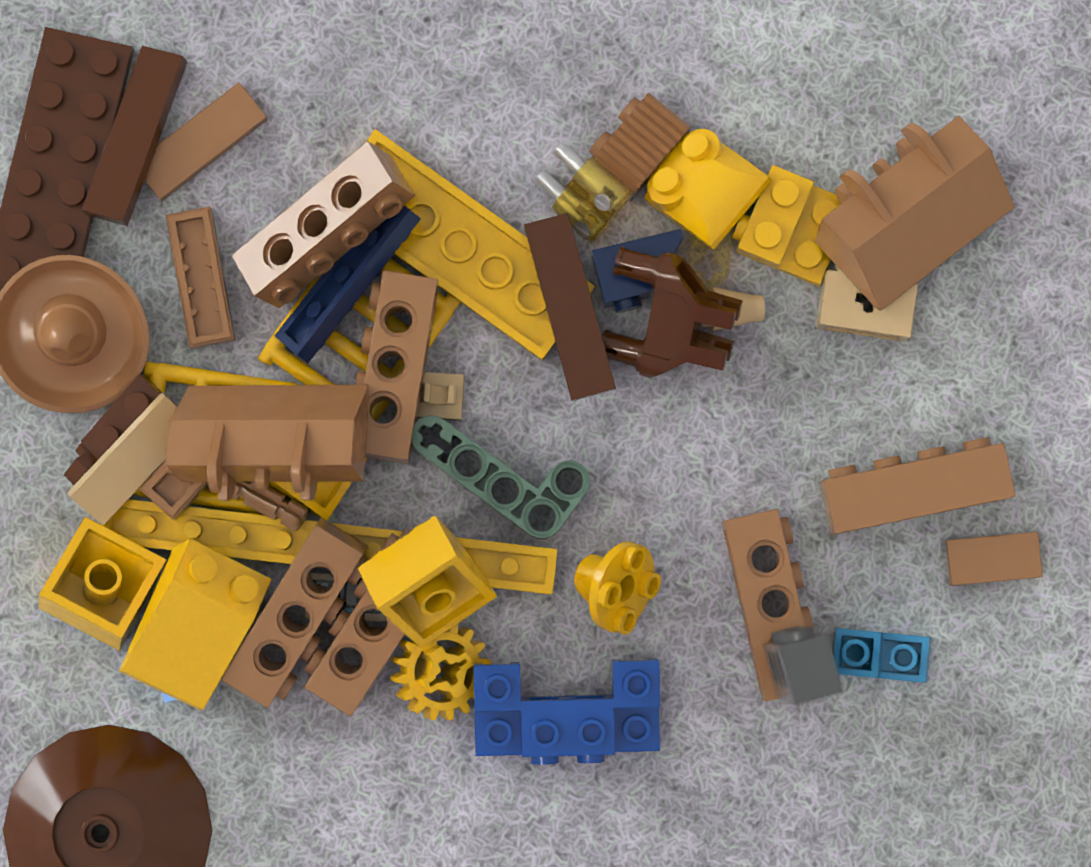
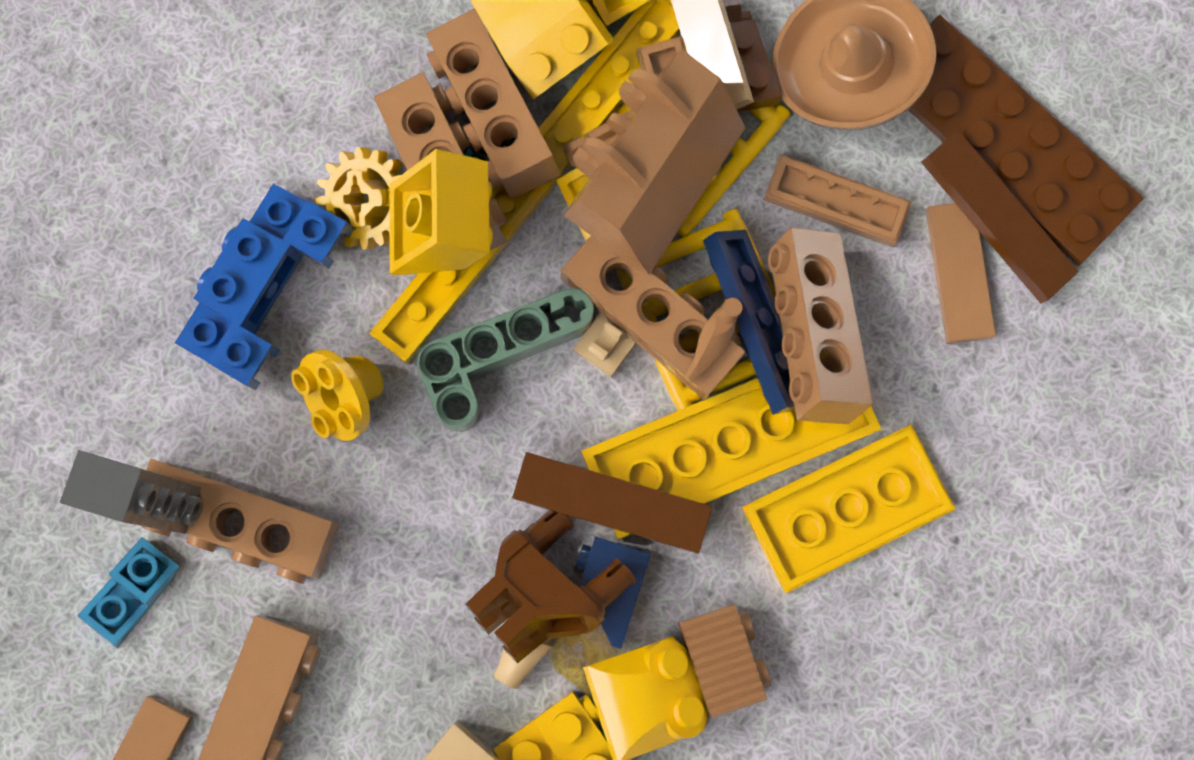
camera: 115 degrees right, 5 degrees down
(387, 300) = (714, 337): none -> medium nougat bar
(455, 119) = (848, 508): none -> yellow tile
(591, 195) = (701, 584): clear yellow piece -> none

